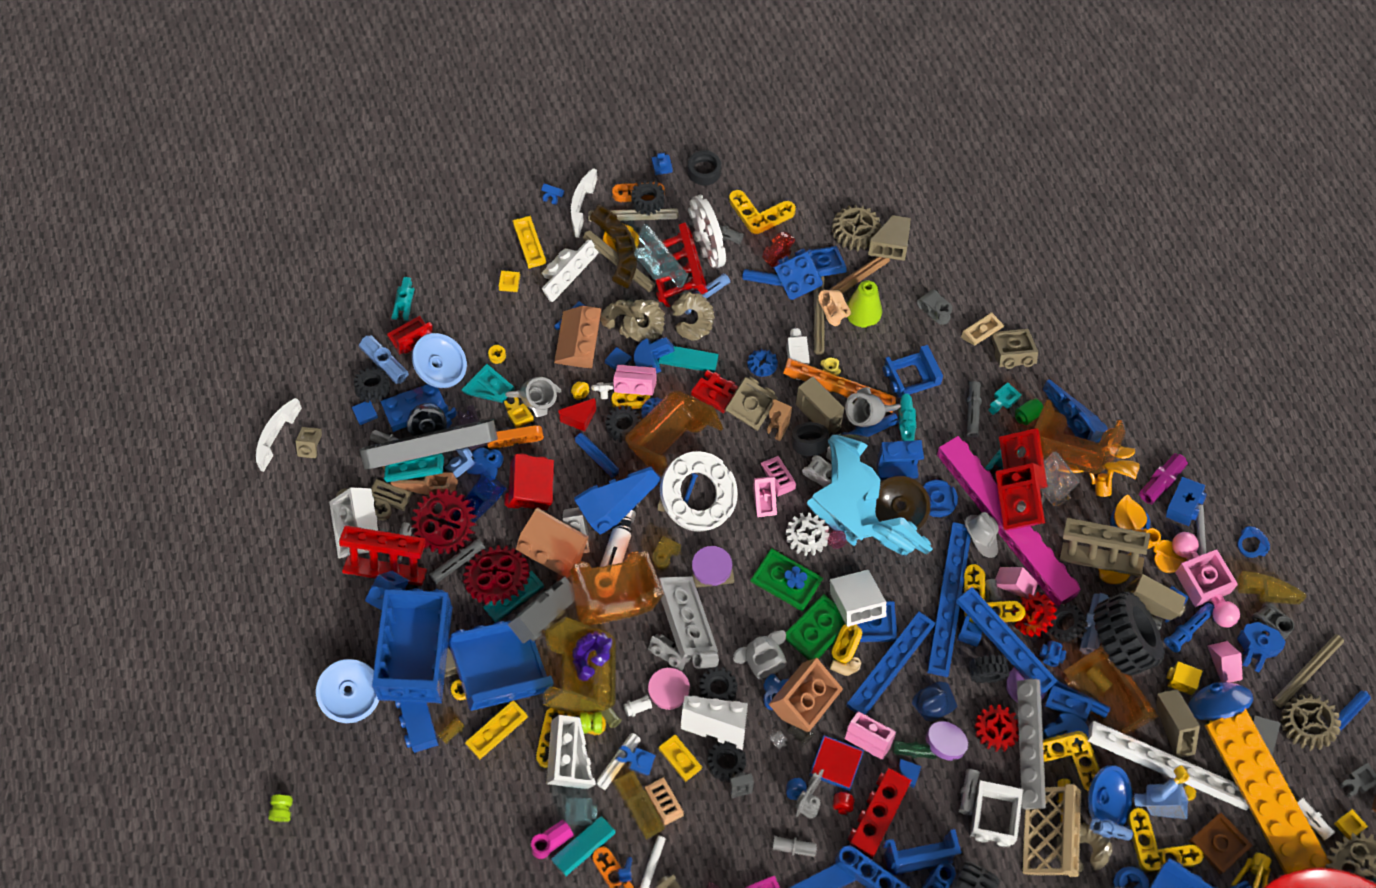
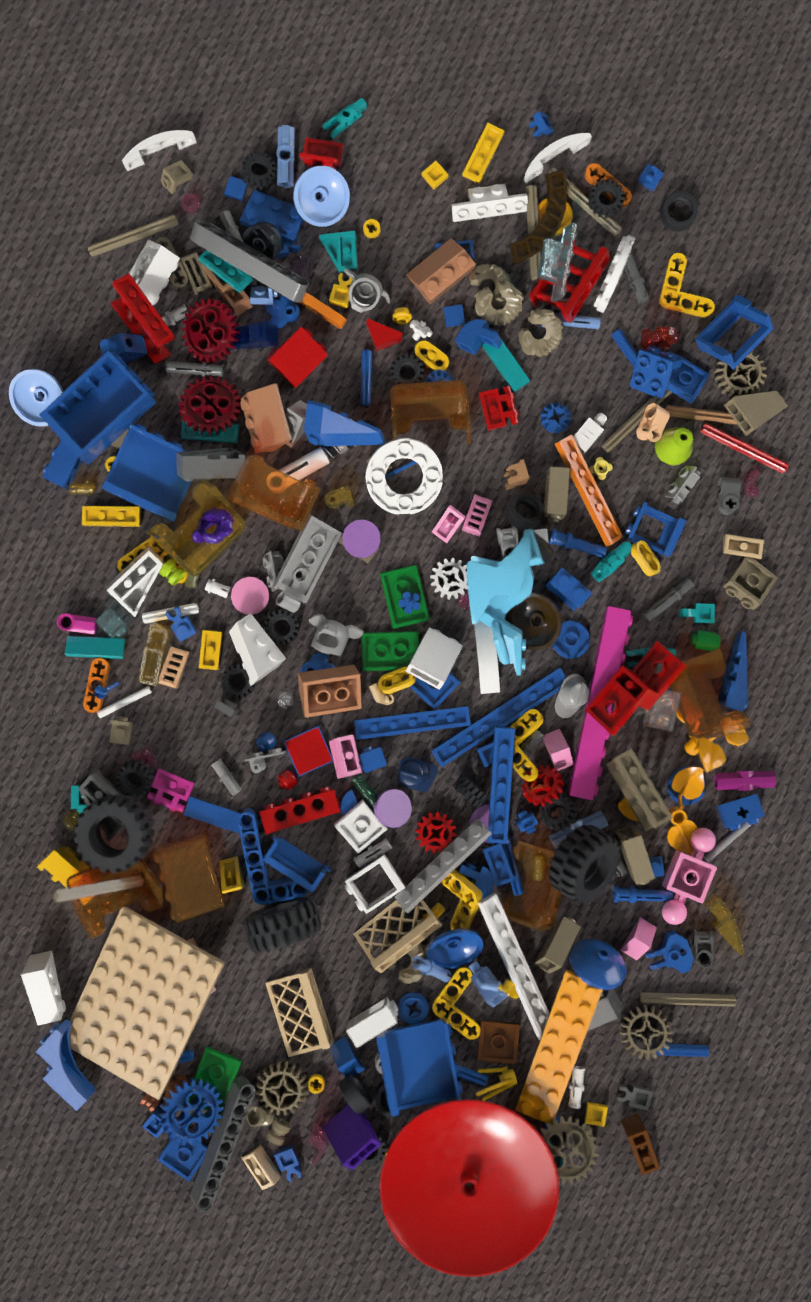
camera: 50 degrees right, 25 degrees up
(312, 511) = (132, 235): none -> dark tan axle
(338, 450) = (190, 203): none -> clear pink plate
(634, 380) = (444, 346): bright pink brick -> none
(751, 403) = (511, 443): dark tan plate -> none
(814, 186) = (737, 308): none -> blue piece
(867, 409) = (585, 529): light grey piece -> none
(892, 716) = (372, 759): none -> blue brick
(893, 563) = (486, 659): none -> white slope
(896, 320) = (687, 476): none -> light grey hinge
(912, 270) = (744, 448): none -> axle
(931, 396) = (645, 558): none -> yellow plate
(937, 780) = (360, 826): none -> white tile
(945, 292) = (749, 483): none -> clear pink arm
(1184, 678) = (596, 922): yellow brick -> none
(1252, 531) = (761, 875): blue piece -> none

